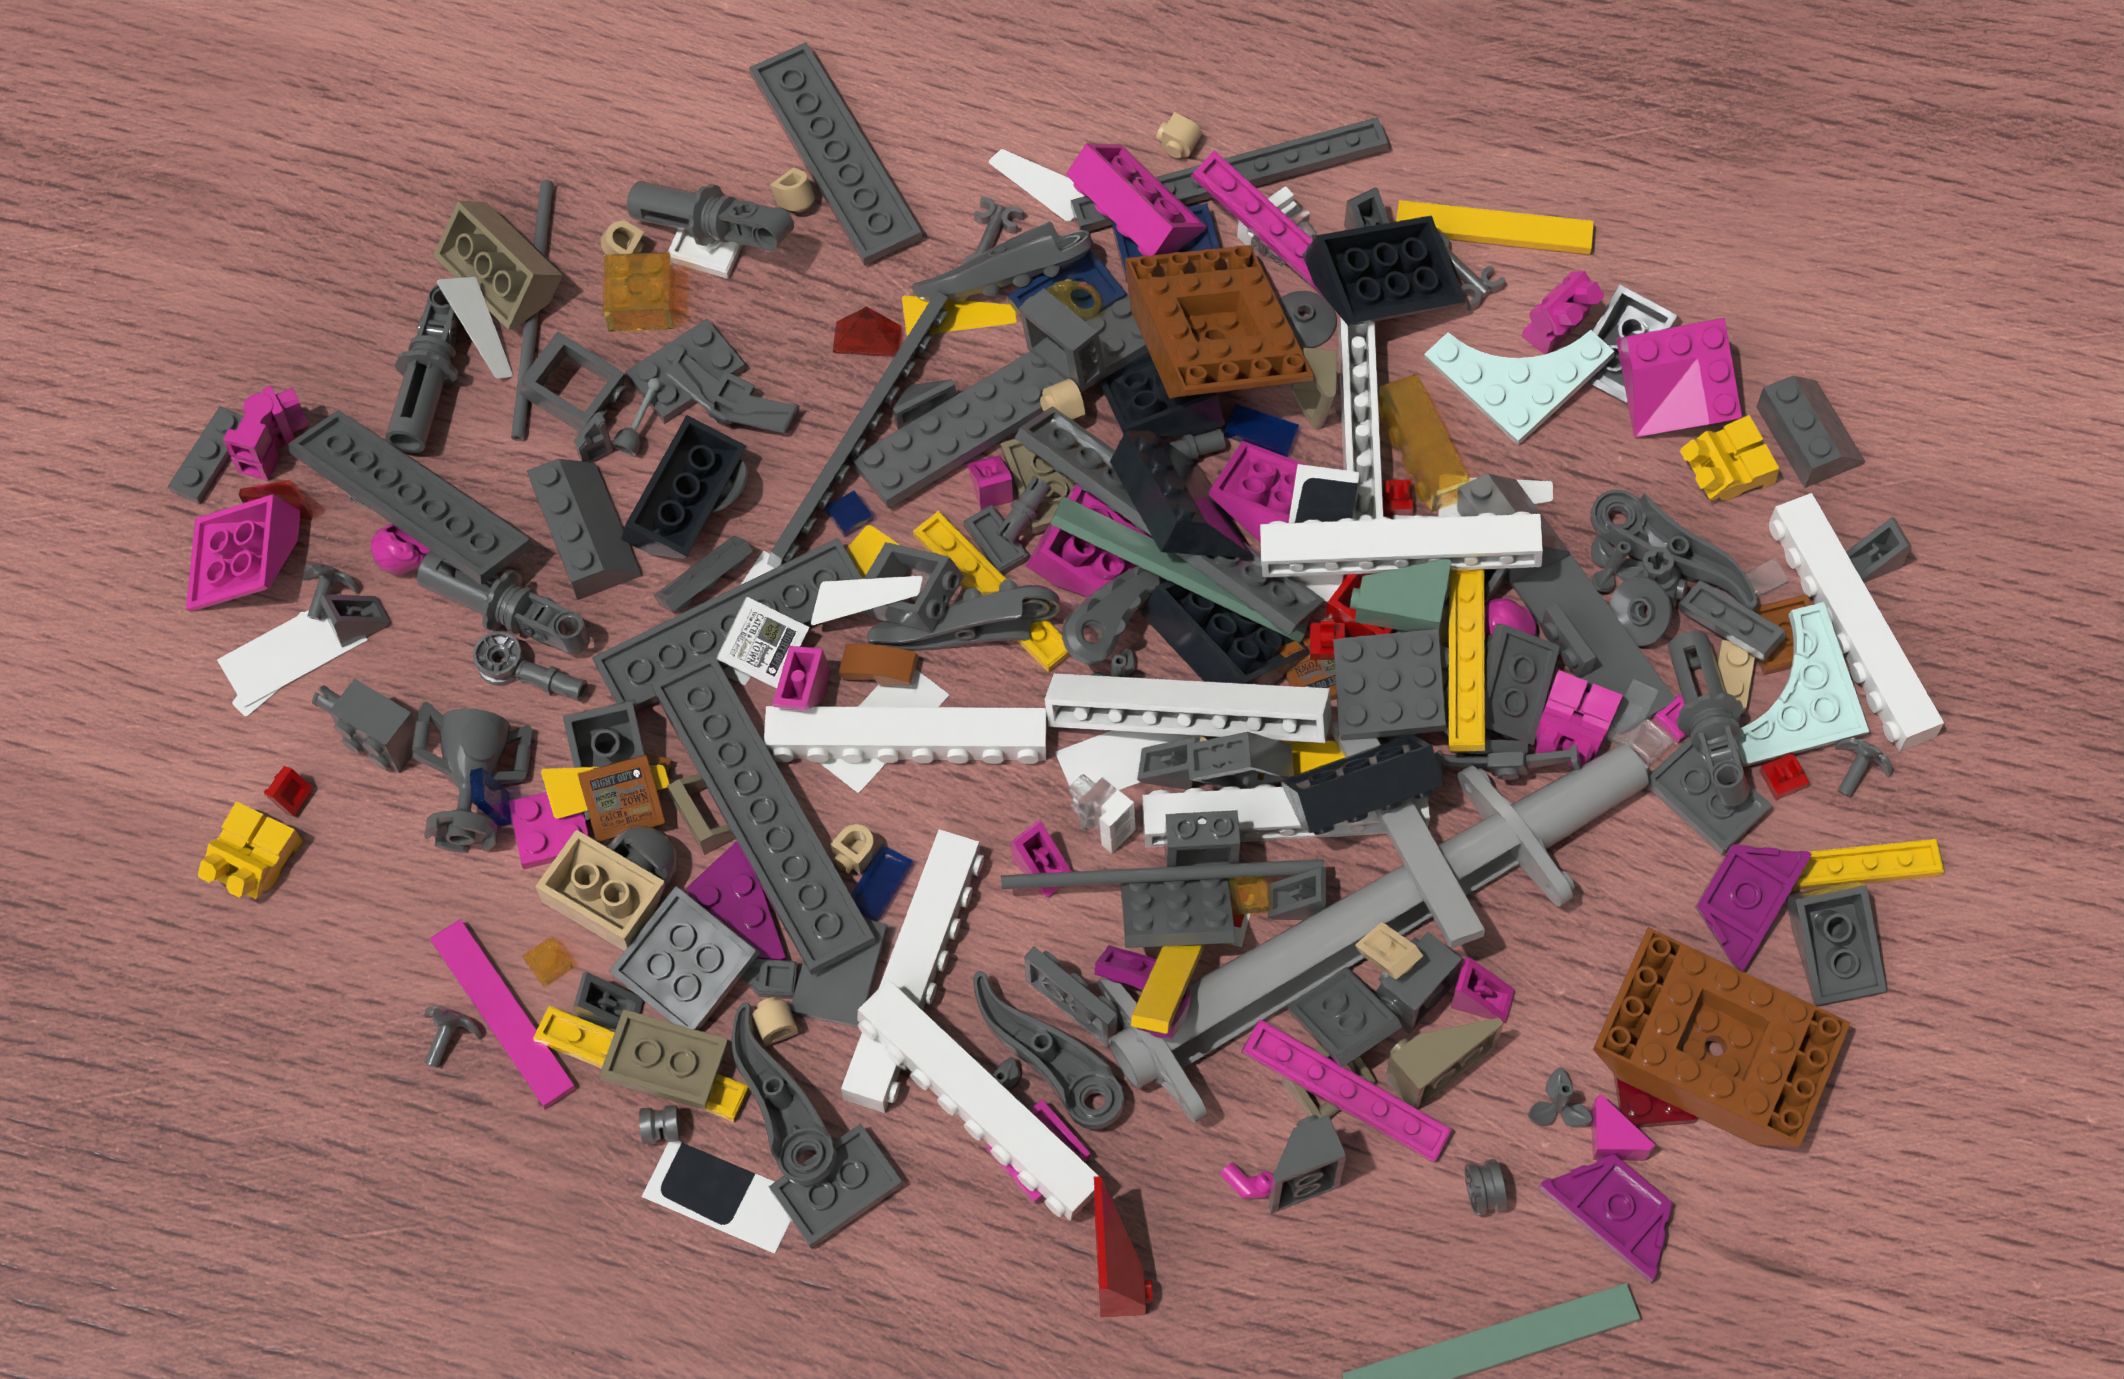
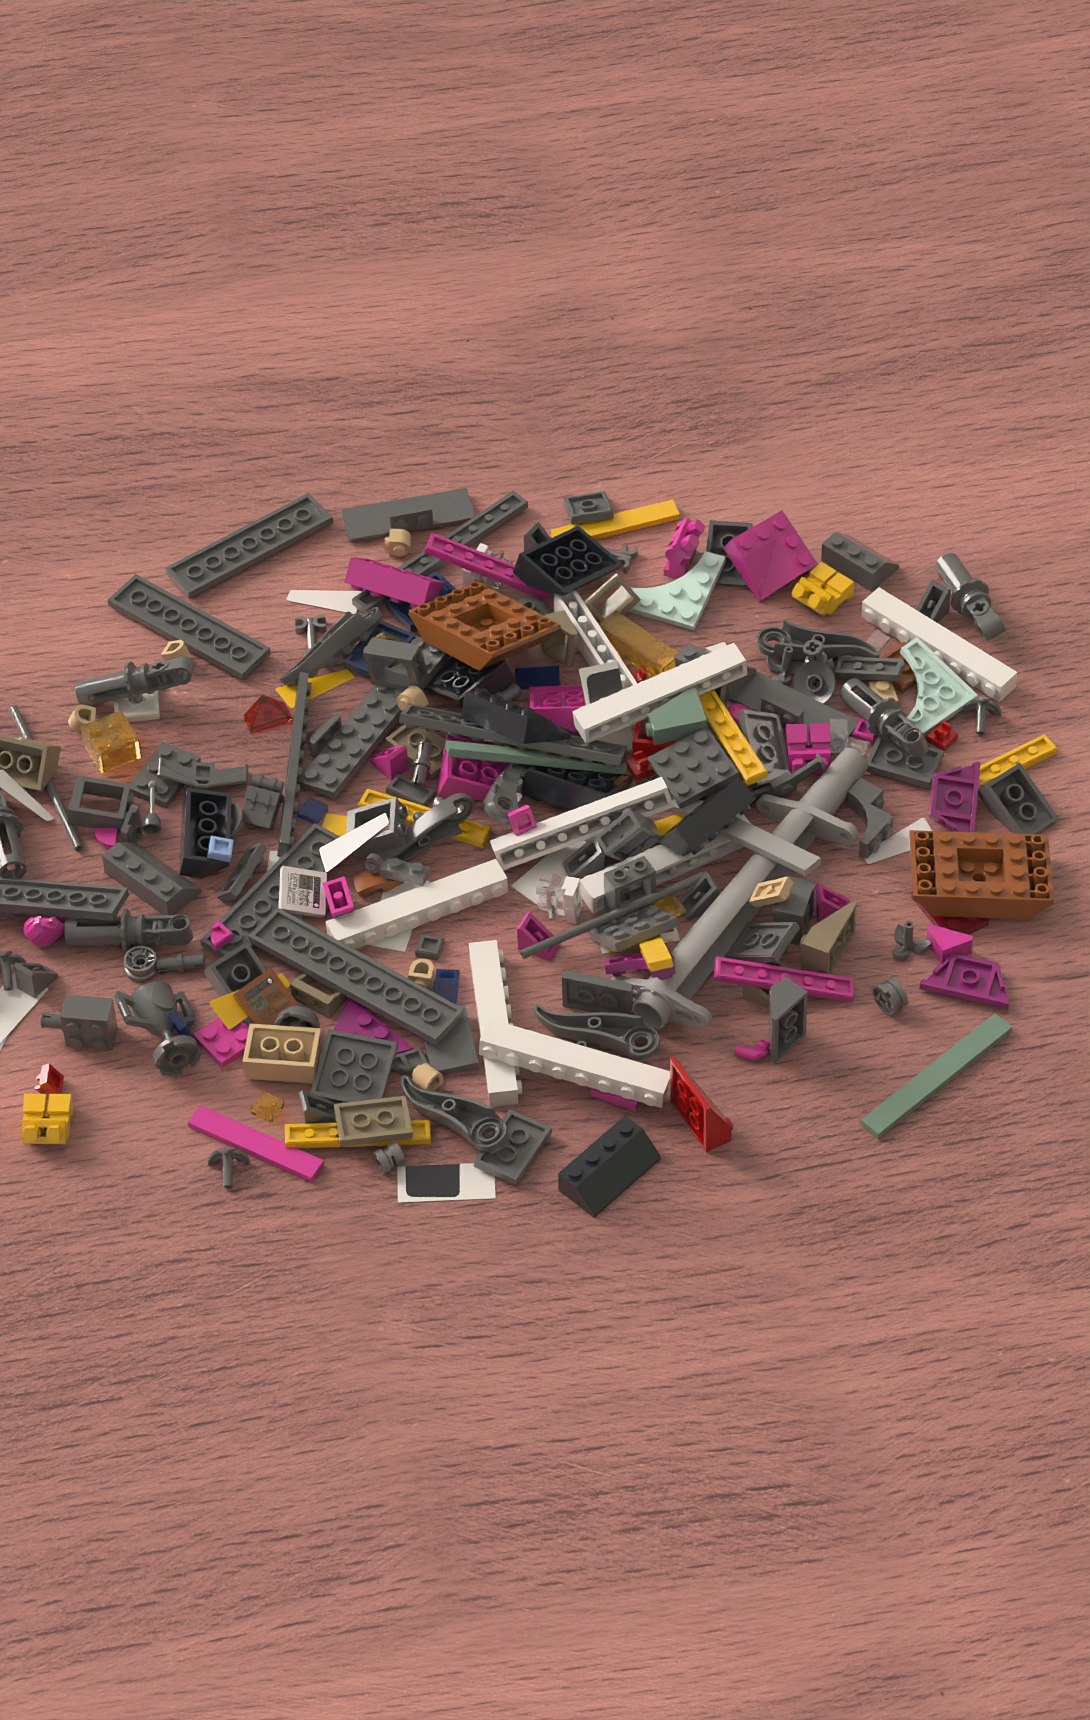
camera: 25 degrees left, 15 degrees down
(561, 437) = (106, 836): none -> dark pink tile
(618, 664) = (220, 935): none -> dark pink tile
(683, 530) = (220, 848): none -> light blue tile
(783, 476) = (263, 801): none -> dark grey piece
(893, 803) = (429, 947): none -> dark grey tile
(906, 668) = (399, 870): none -> flat silver plate
(948, 1284) = (608, 1167): none -> black slope
(979, 57) = (248, 545): none -> dark grey plate
(1104, 668) = (521, 820): none -> dark pink tile
(1217, 95) = (408, 514): none -> dark grey bracket
(1428, 361) = (620, 601): none -> dark tan tile
(1468, 186) = (588, 507): none -> dark grey plate
(1618, 839) = (867, 802): none -> dark grey arch
(1630, 924) = (898, 842): none -> white sticker
(1937, 563) = (969, 596): none -> dark grey piece

